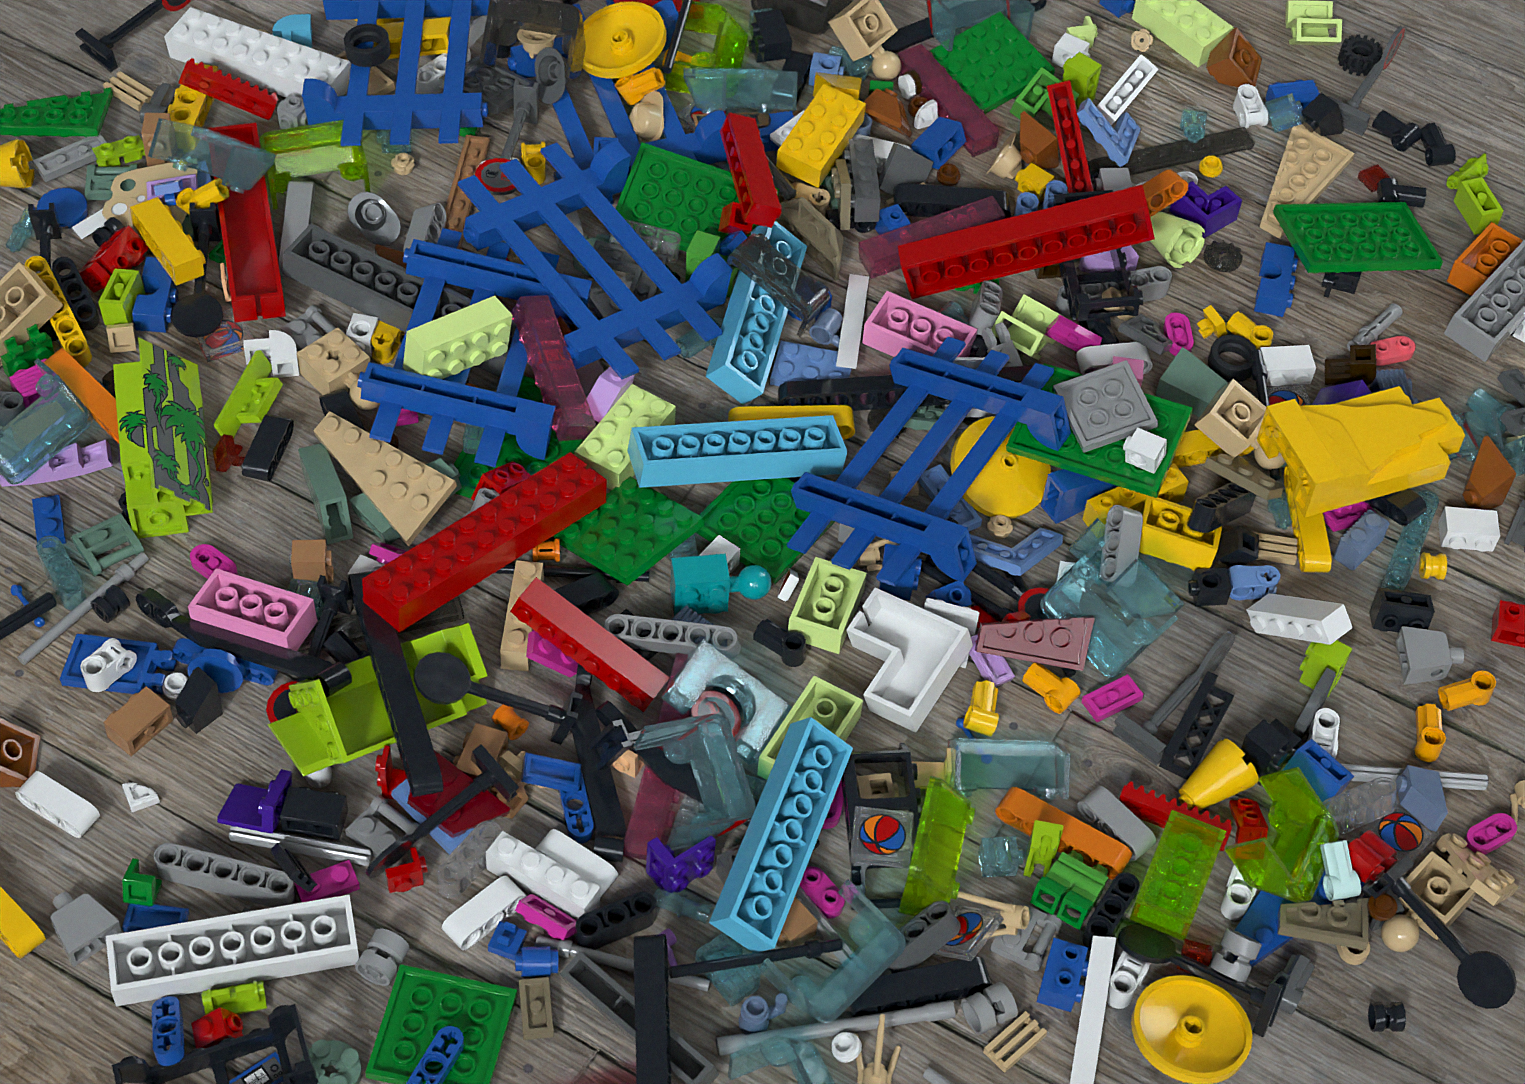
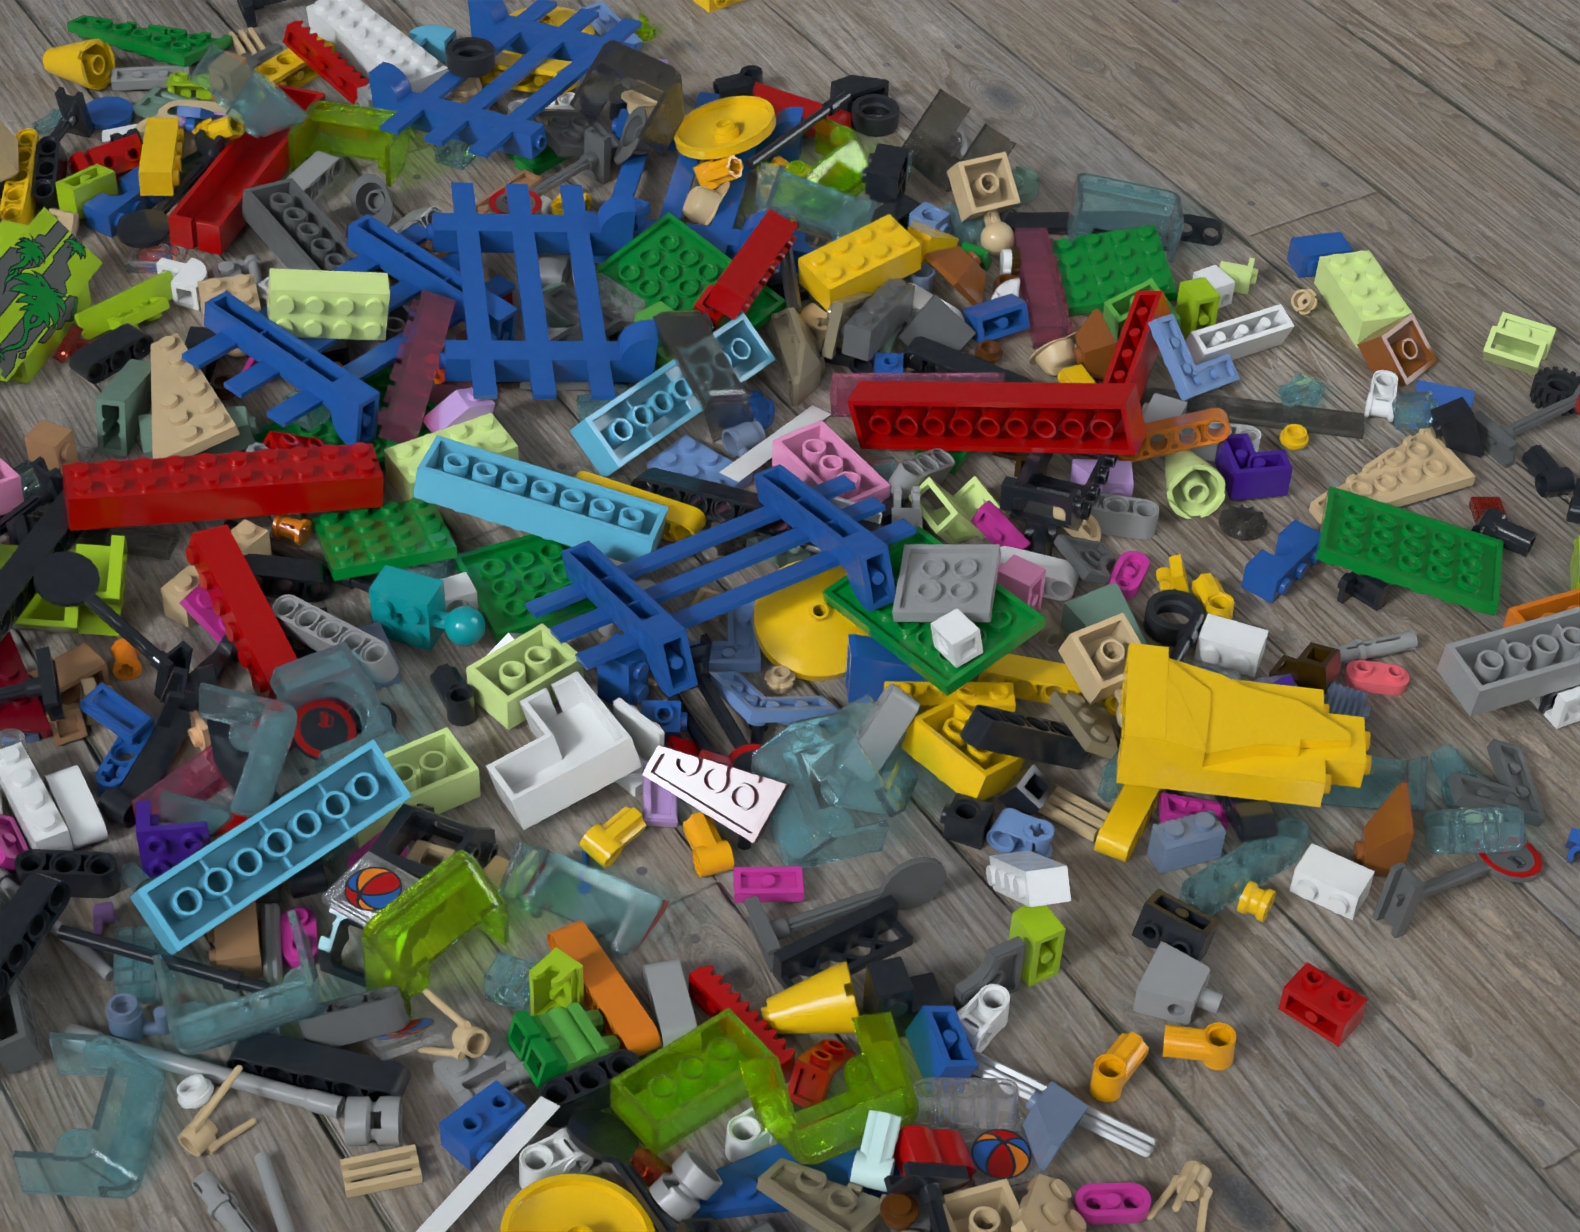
camera: 30 degrees right, 10 degrees down
(403, 163) = (444, 174): tan plate -> none

